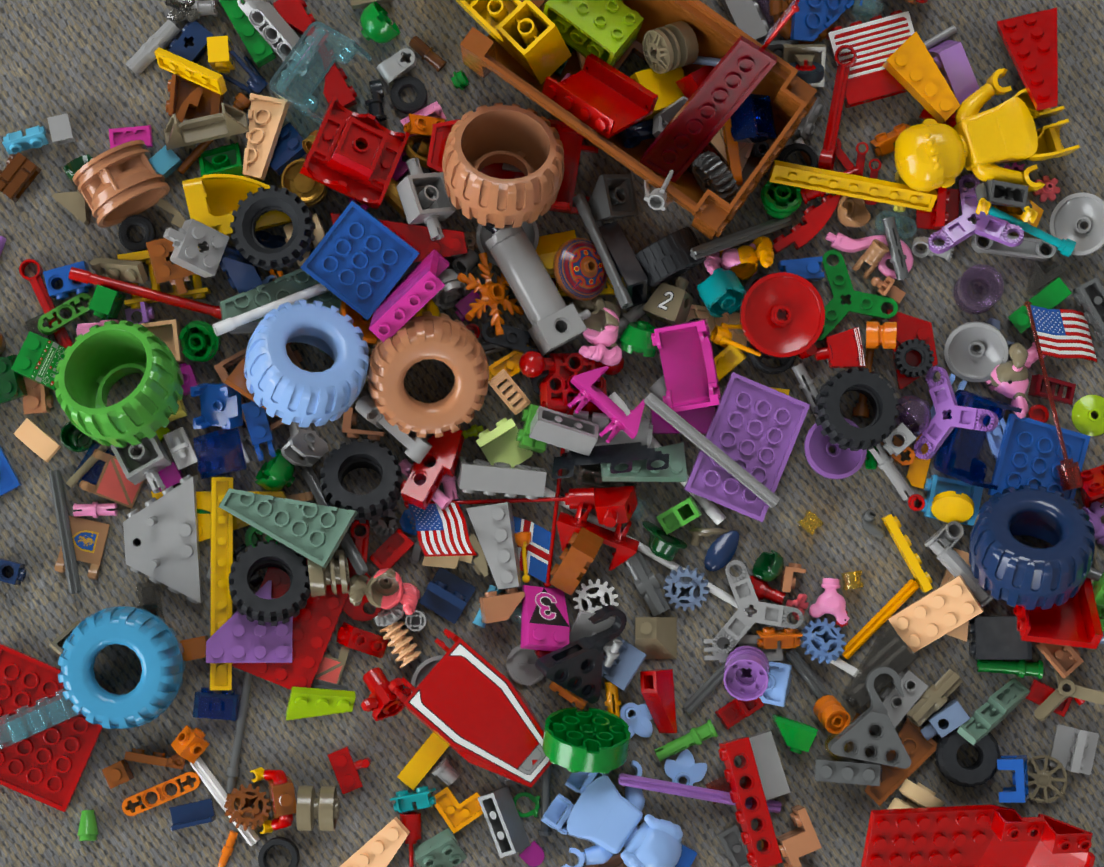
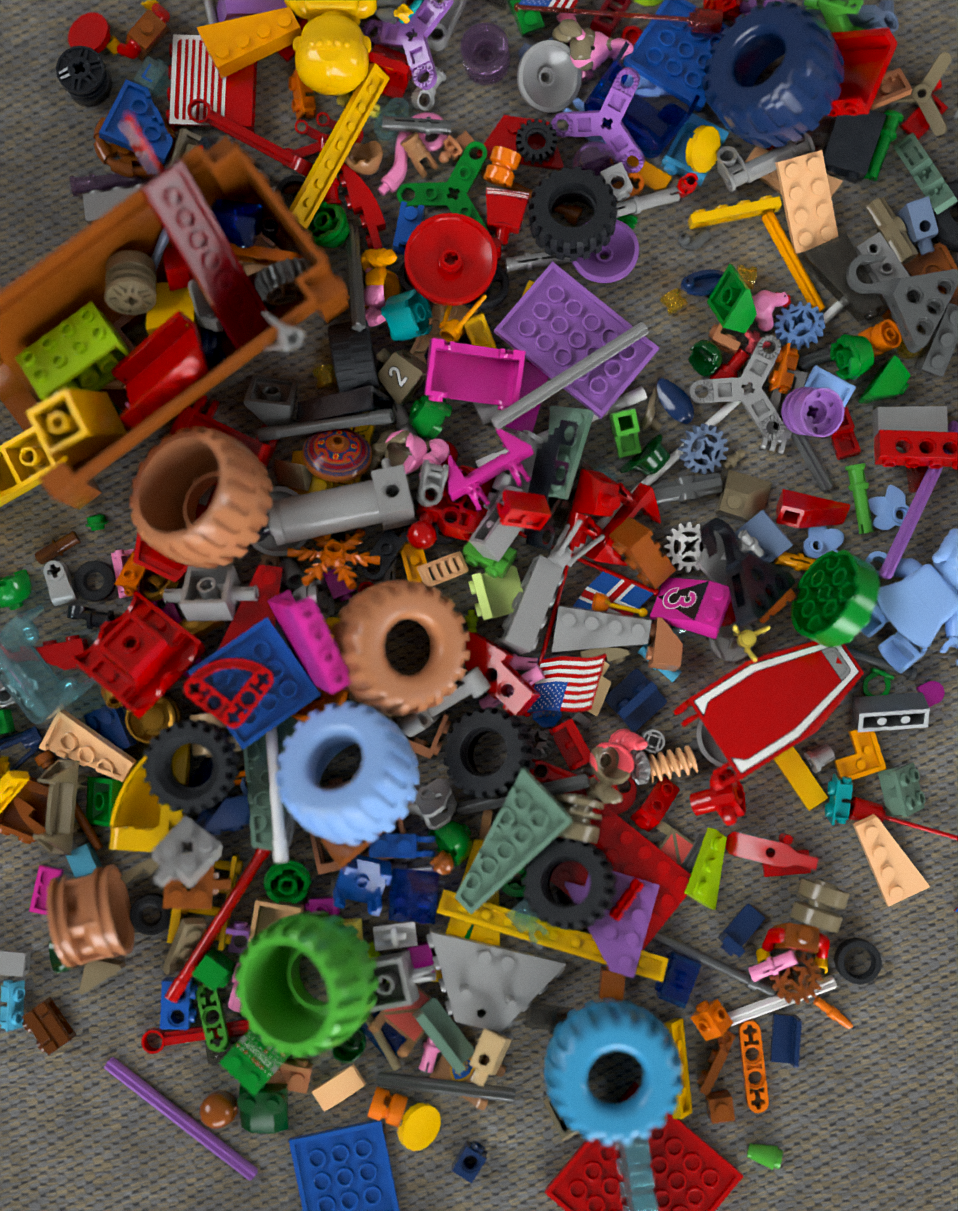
camera: 75 degrees left, 0 degrees up
(24, 519) = (419, 1126): none -> yellow tile
(33, 479) = (393, 1113): none -> orange wheel
(109, 516) = (444, 1034): none -> sand green panel
(111, 563) = (493, 1045): none -> tan torso
(116, 738) = (684, 1106): none -> yellow plate
(227, 555) = (524, 920): none -> clear light blue plate
(252, 782) = (772, 965): none -> bright pink pin
(254, 469) = (442, 863): none -> dark orange plate
(271, 636) = (626, 899): none -> red axle
(274, 746) = (740, 930): none -> dark blue bracket
(333, 242) = (227, 705): none -> red beam
(349, 740) = (756, 850): none -> piece
(529, 676) = (748, 638): none -> light yellow plant
(552, 236) = (293, 475): none -> dark tan slope
(553, 489) = (561, 553): none -> light grey plant
(579, 445) = (523, 510): none -> red hinge
(580, 359) = (432, 478): none -> light grey piece
(647, 237) = (325, 376): none -> clear yellow wheel
(685, 617) = (731, 460): none -> dark tan piece
(808, 695) = (852, 355): none -> green cone
(822, 574) = (732, 301): none -> green slope
(836, 546) = (701, 282): none -> dark blue arm

